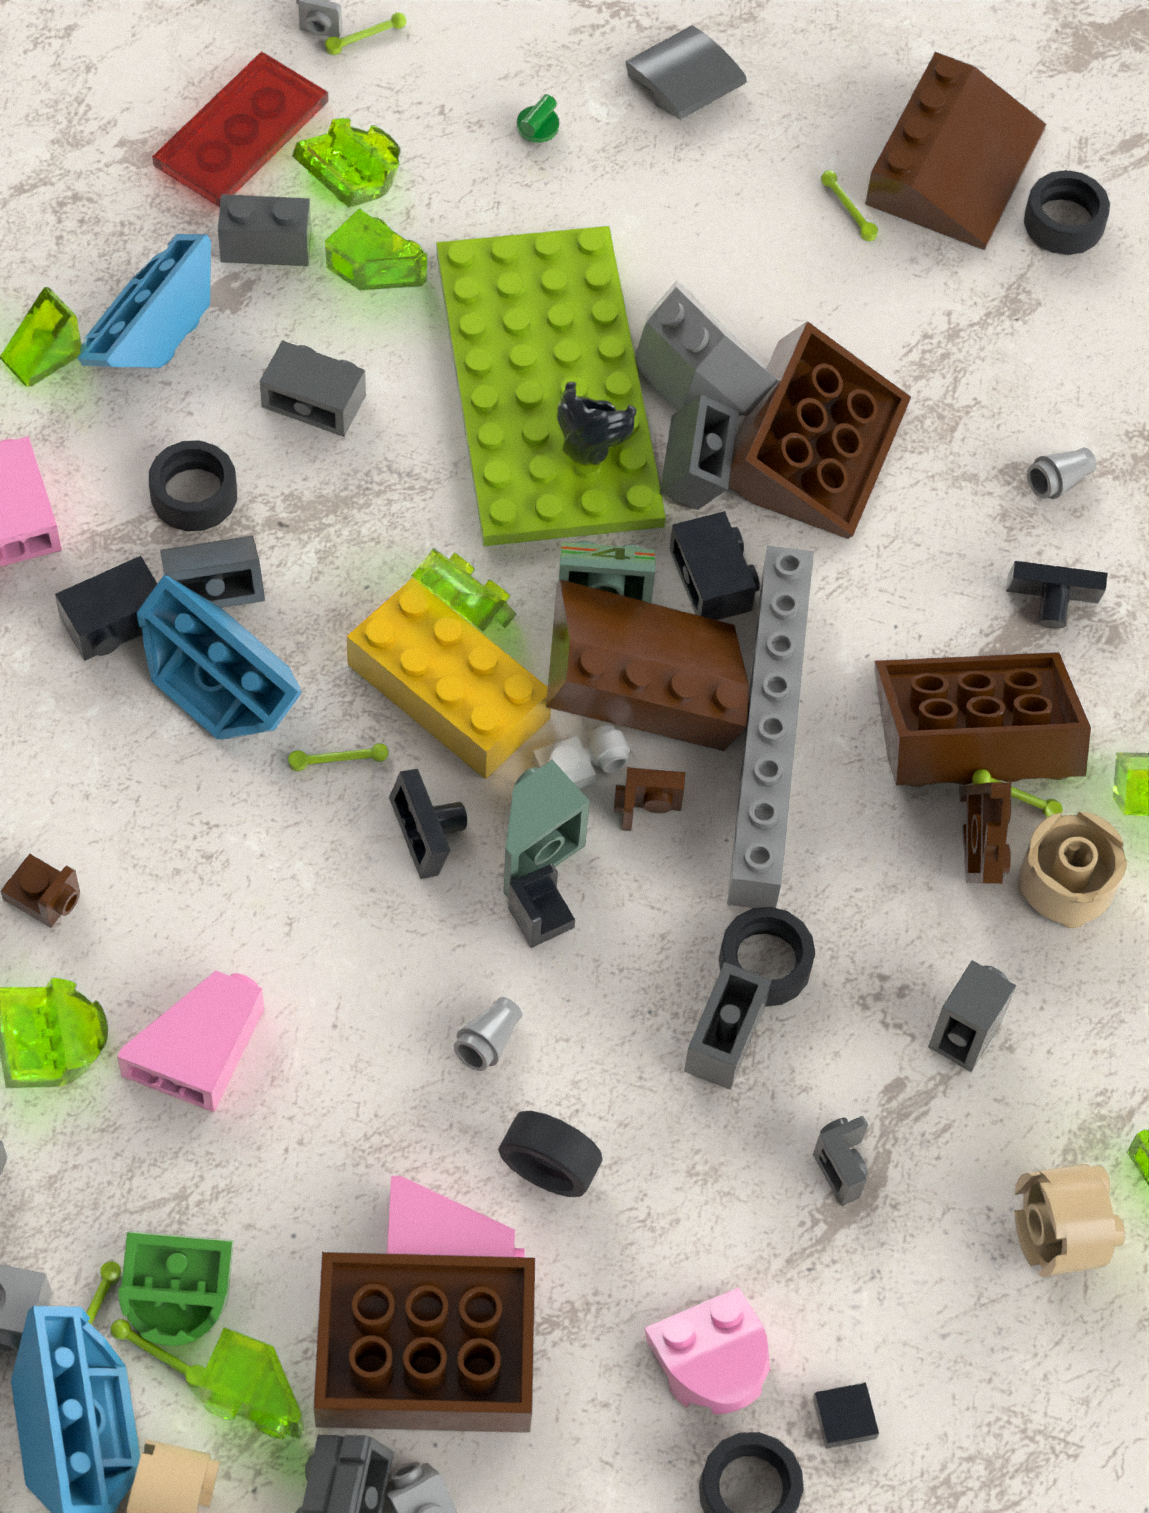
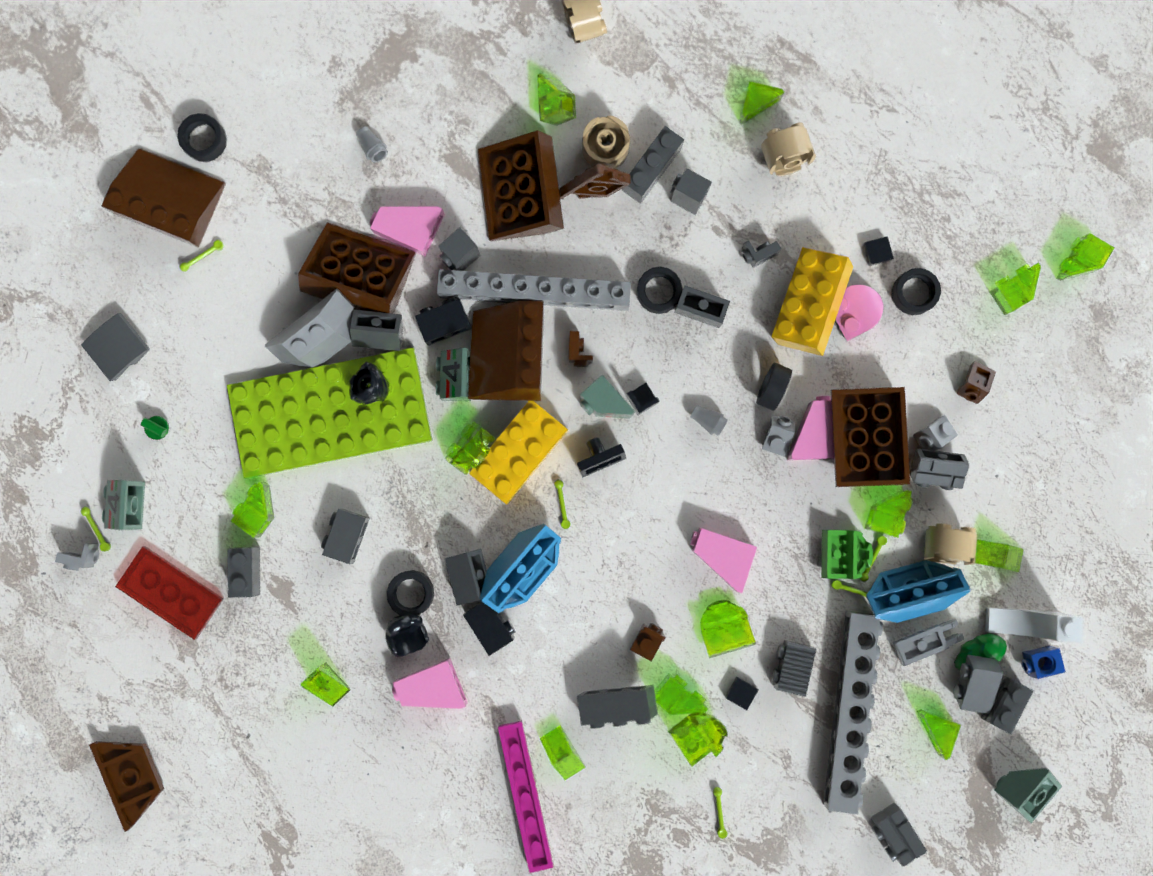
camera: 85 degrees left, 25 degrees up
(114, 463) = (406, 635): none -> black hair
(154, 308) = (304, 629): dark azure wedge -> none
(351, 161) = (191, 528): clear neon green slope -> none
(403, 69) = (123, 505): none -> sand green slope
(448, 1169) = (779, 435): none -> light grey bracket
(605, 751) = (559, 390): white plate -> none
(731, 1244) = (812, 301): none -> yellow brick
(850, 591) = (458, 251): none -> dark grey brick
(900, 522) = (408, 226): none -> bright pink slope
(1031, 956) = (653, 164): none -> dark grey brick
(1048, 807) = (567, 154): lime hinge -> none
(1056, 588) = (444, 149): black tile -> none

